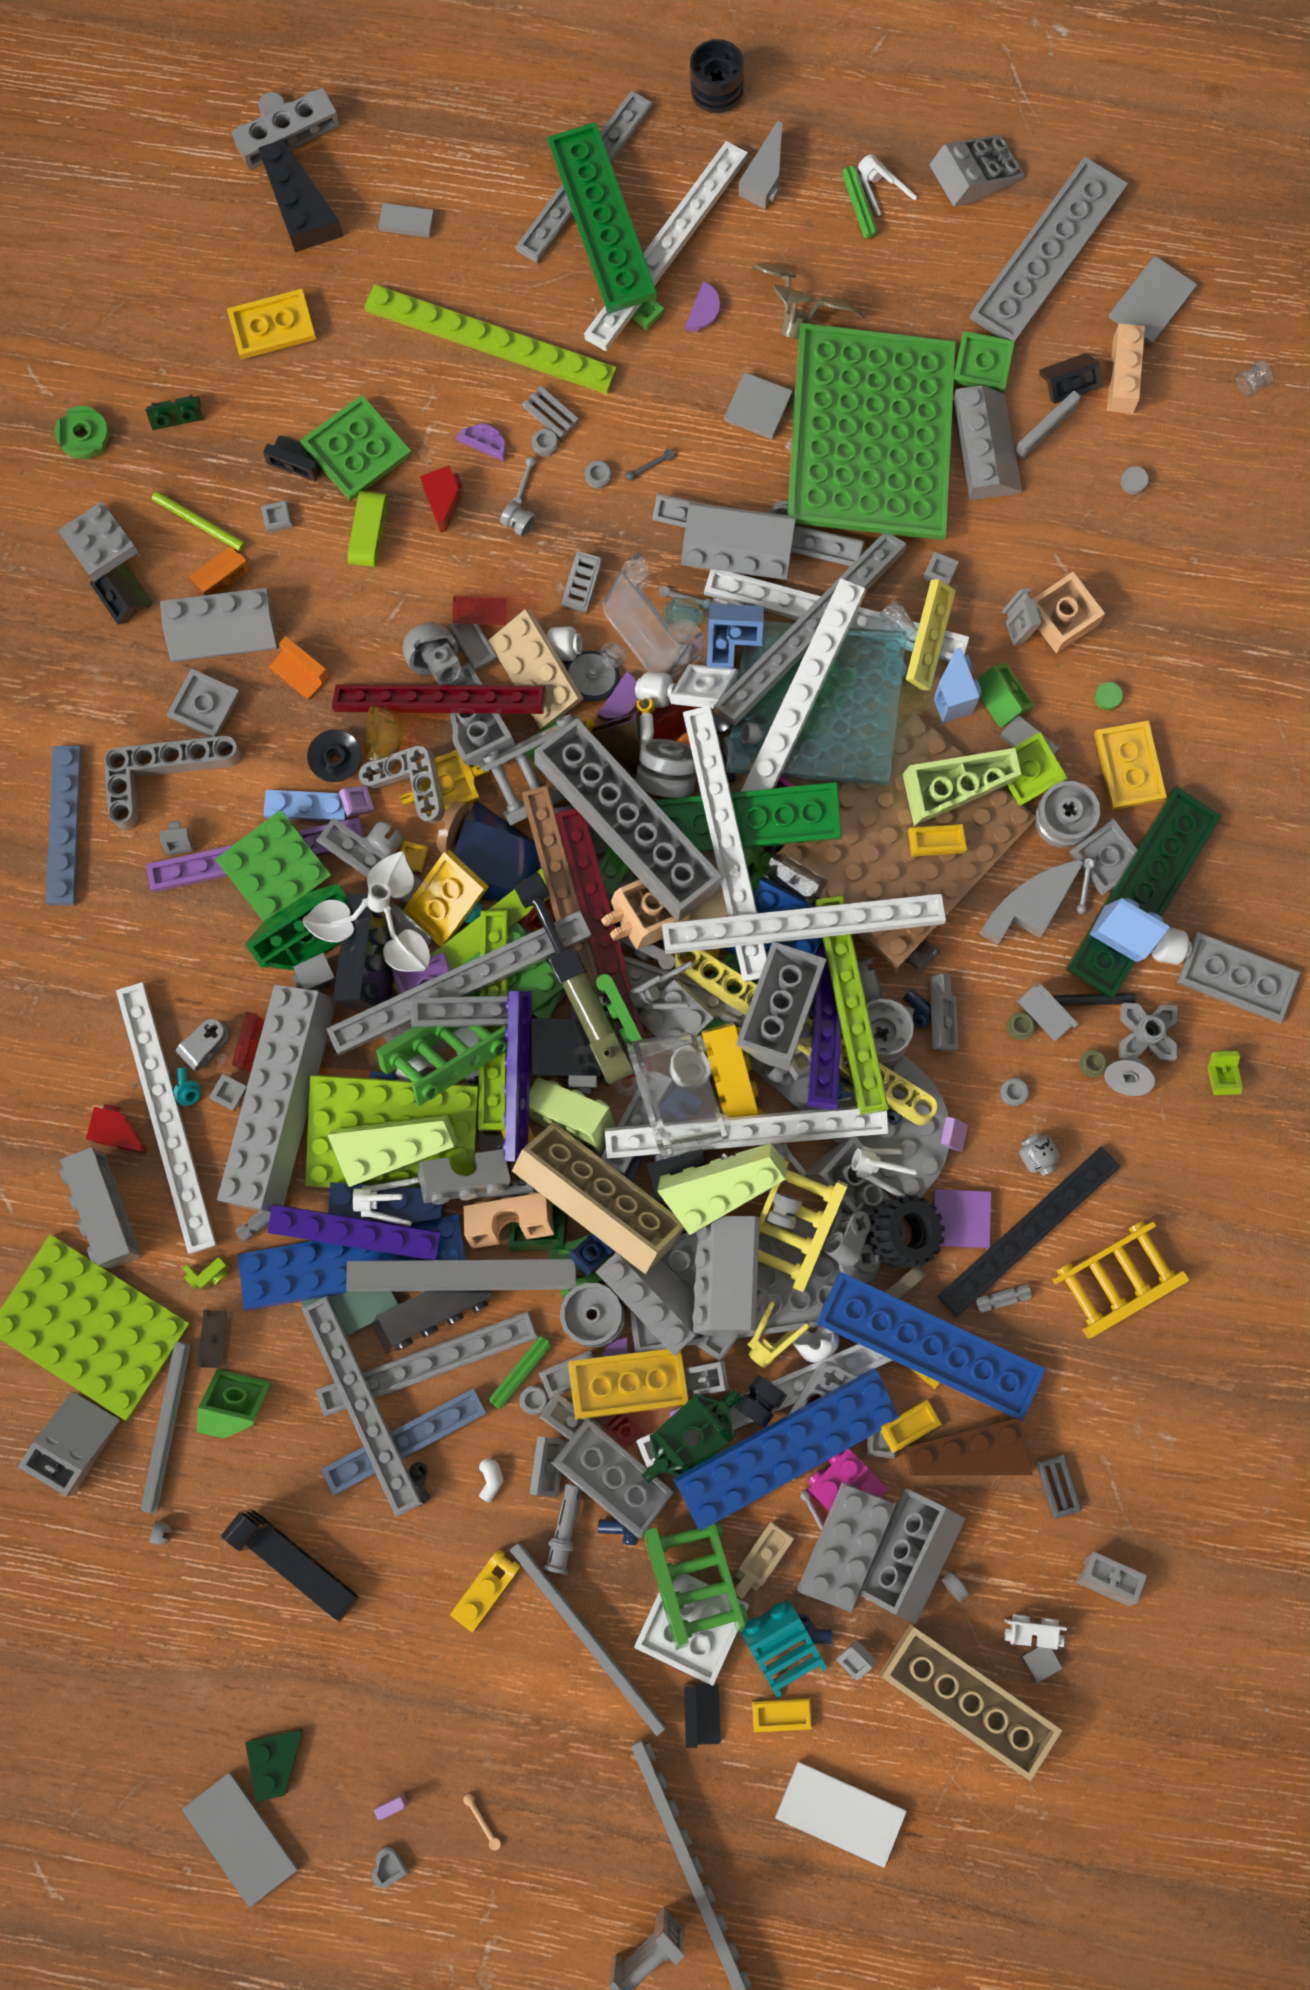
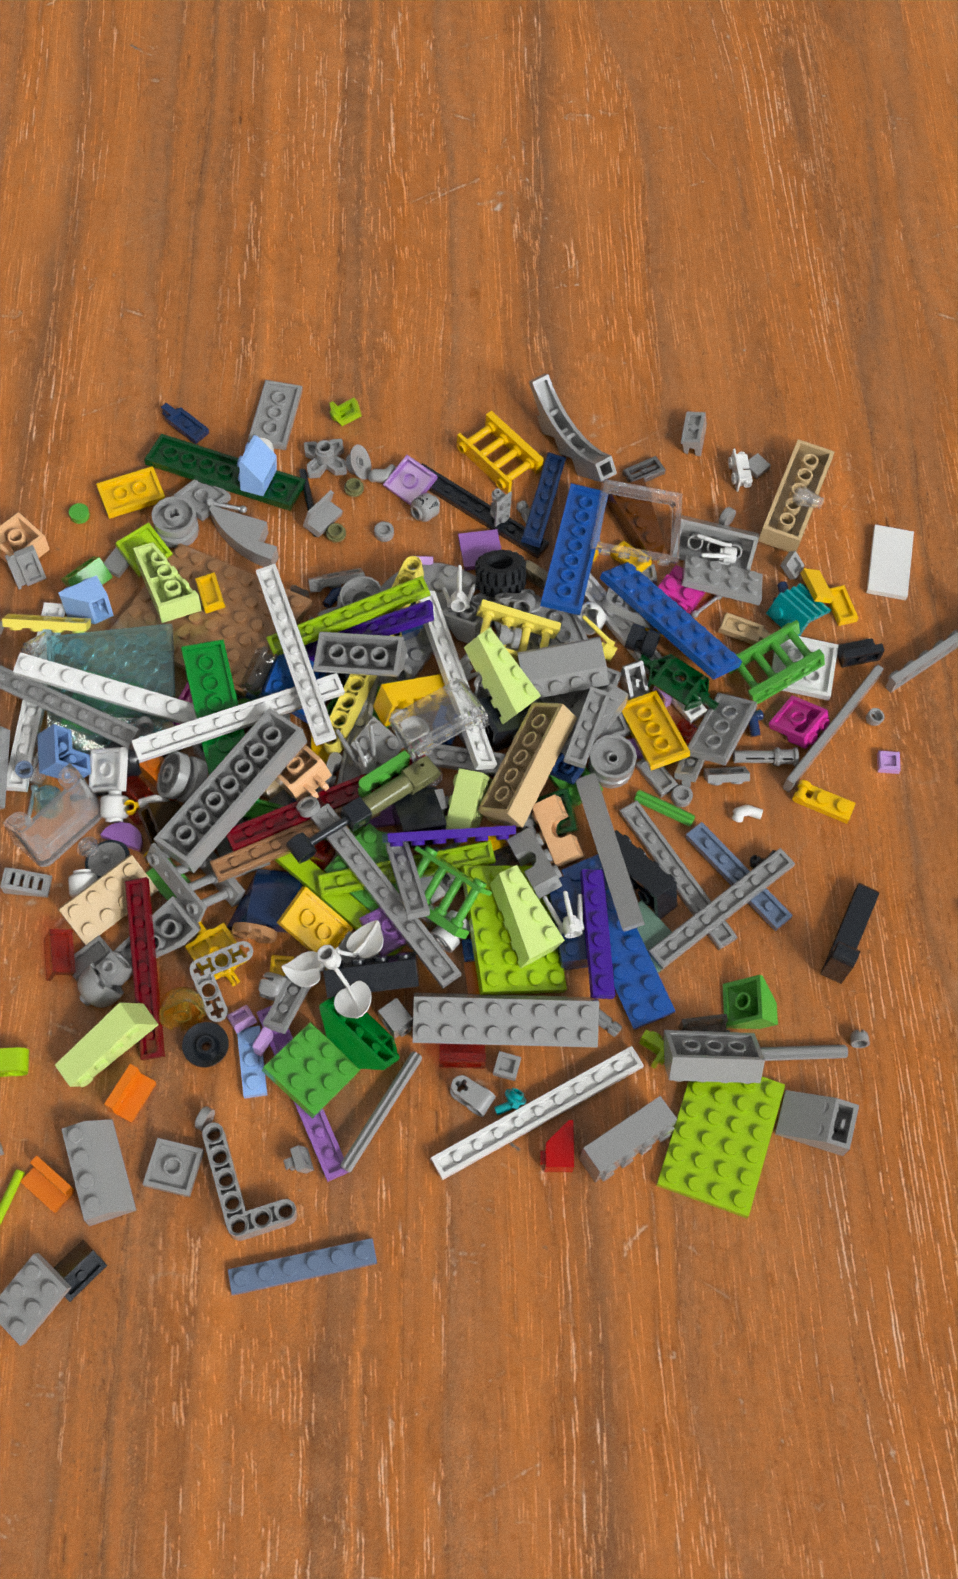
camera: 110 degrees left, 15 degrees down
(170, 1335) = (713, 1056): none -> light grey slope
(209, 938) = (381, 1112): none -> light grey axle
(249, 743) = (204, 1117): none -> light grey tile
(315, 815) = (262, 1041): none -> lavender tile
(354, 647) = (105, 1043): none -> yellowish green wedge
(525, 1701) = (888, 762): none -> lavender tile
(589, 1707) = (876, 719): none -> light grey hinge
(591, 910) = (308, 806): none -> light grey tile
(605, 1592) = (800, 721): none -> dark pink plate
(626, 1282) = (587, 727): none -> light grey plate
(717, 589) = (24, 765): none -> sand blue hinge
(814, 1685) = (817, 585): none -> yellow tile
(881, 1562) = (727, 554): none -> white plant
(947, 1706) = (807, 498): none -> clear cone
(995, 1458) = (643, 493): none -> clear windscreen
(1009, 1254) = (500, 506): none -> light grey hinge
(1028, 1324) = (543, 500): none -> dark blue tile
(1090, 1142) = (410, 480): none -> medium lavender tile
(1107, 1106) = (381, 475): none -> light grey arm
(1124, 1383) = (555, 422): none -> light grey arch
(1236, 850) = (185, 423): none -> dark blue hinge

